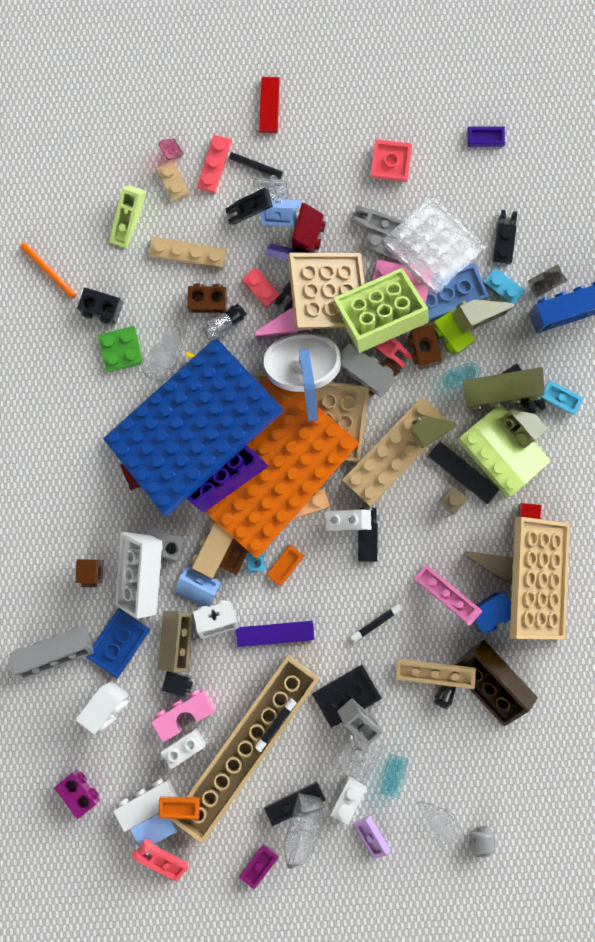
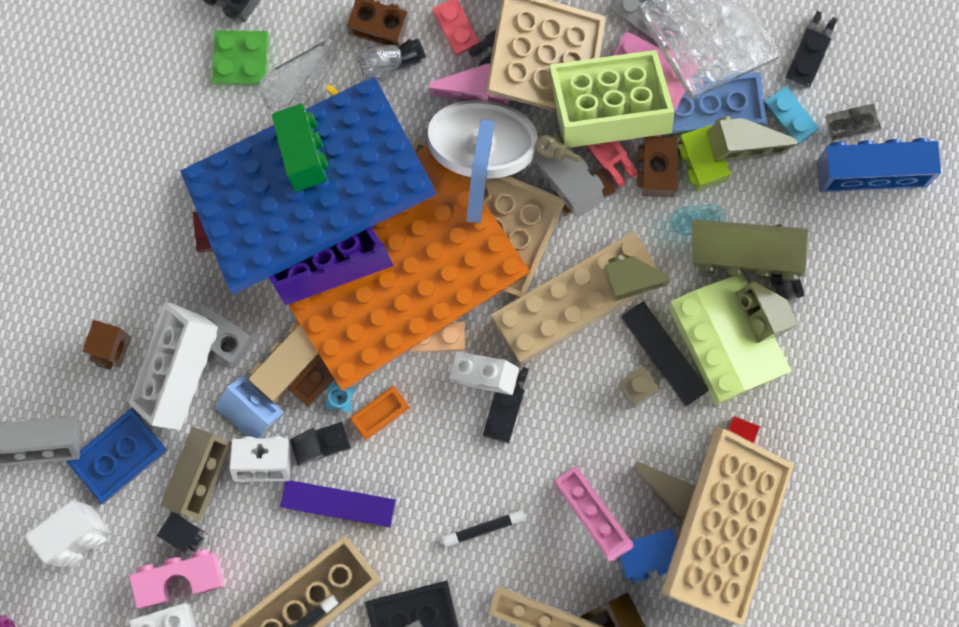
camera: 10 degrees right, 5 degrees down
(181, 402) = (300, 147): none -> green brick
(251, 597) = (320, 443): none -> black slope
(350, 355) = (553, 147): none -> dark tan piece
(562, 397) = (830, 287): medium azure plate -> none

